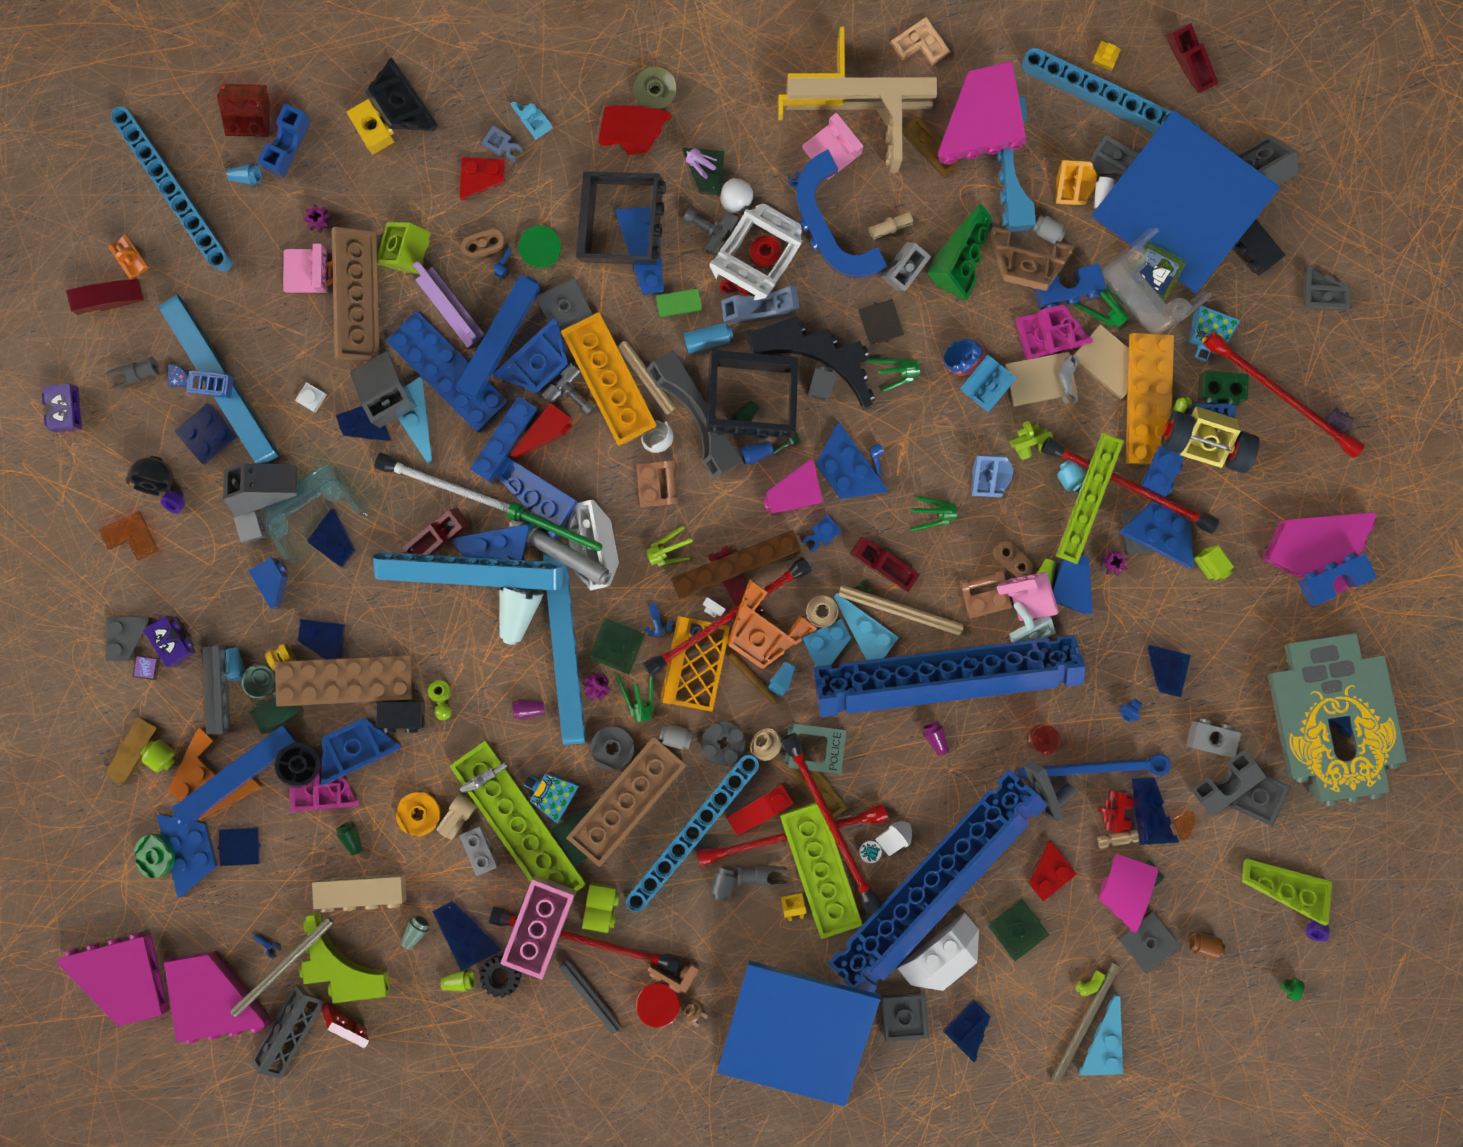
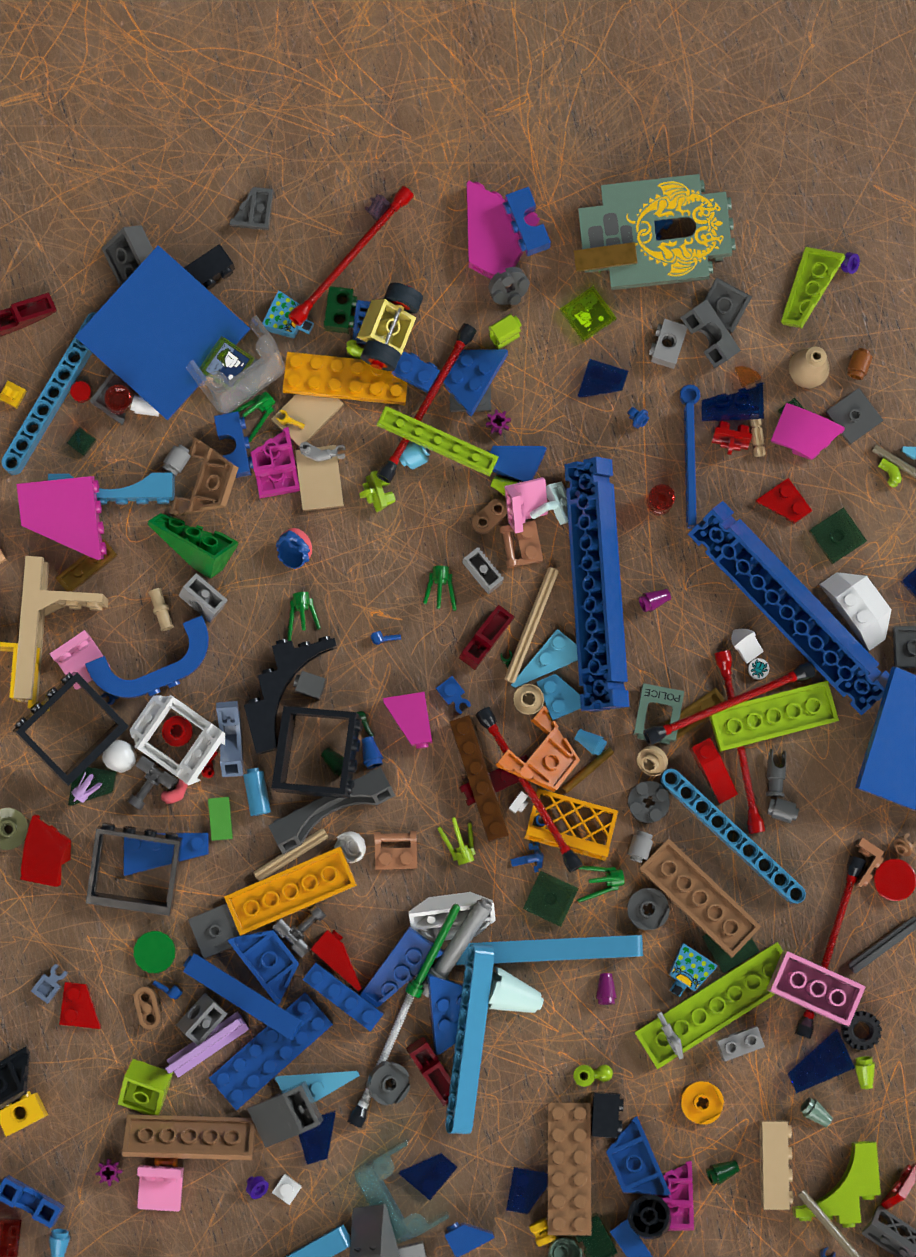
camera: 85 degrees left, 5 degrees down
(310, 366) = (256, 1187): none -> dark purple tile
(420, 479) = (384, 1072): none -> dark grey plate
(459, 812) = (704, 1063): tan piece -> none
(473, 298) = (201, 1019): none -> light grey brick
(532, 119) = (27, 951): medium azure slope -> none
(596, 686) = (588, 920): magenta gear -> none
(599, 907) = (800, 929): lime brick -> none
(700, 255) = (174, 795): none -> coral arm
(737, 167) = (93, 752): none -> black window
(793, 906) = (806, 744): yellow tile -> none
(847, 467) = (392, 666): blue wing -> none
(881, 322) = (253, 625): clear smoke piece -> none
(954, 555) = (483, 571): none -> light grey brick
(988, 383) = (322, 527): dark azure bracket -> none
(991, 475) = (408, 531): medium blue slope -> none
(1042, 786) = (707, 502): dark grey piece -> none
(1061, 131) = (81, 441): none -> clear green tile
(1075, 182) = (133, 432): light orange slope -> none
(1100, 341) = (288, 419): none -> yellow hand
(1109, 161) = (118, 399): none -> clear red wheel
(1114, 125) = (81, 392): none -> red tile
(1199, 891) = (809, 367): none -> tan cone
(1238, 651) = (588, 314): none -> clear neon green tile
(1255, 571) = (515, 292): none -> dark grey plate
(1295, 989) = (903, 287): green tile -> none
(1305, 665) = (605, 257): none -> pearl gold tile

